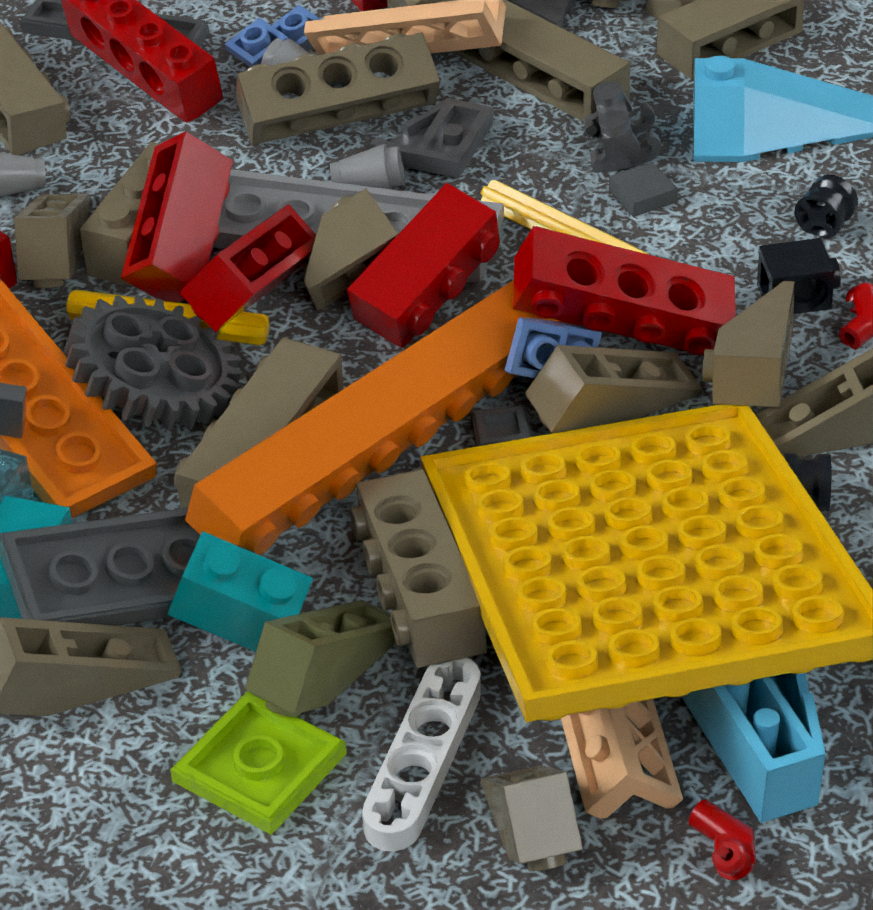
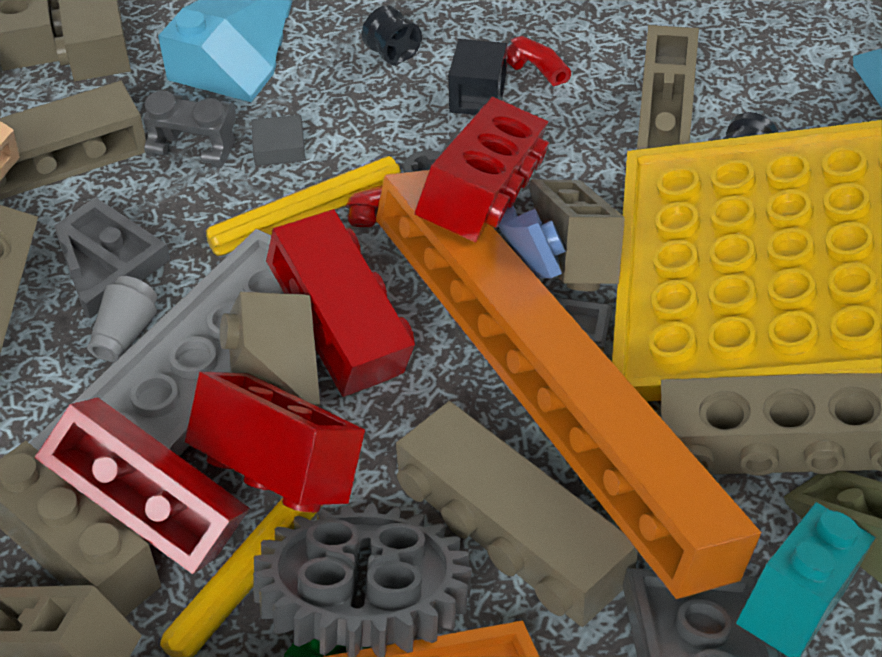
camera: 70 degrees left, 5 degrees up
(753, 352) = (585, 118): dark tan slope -> none

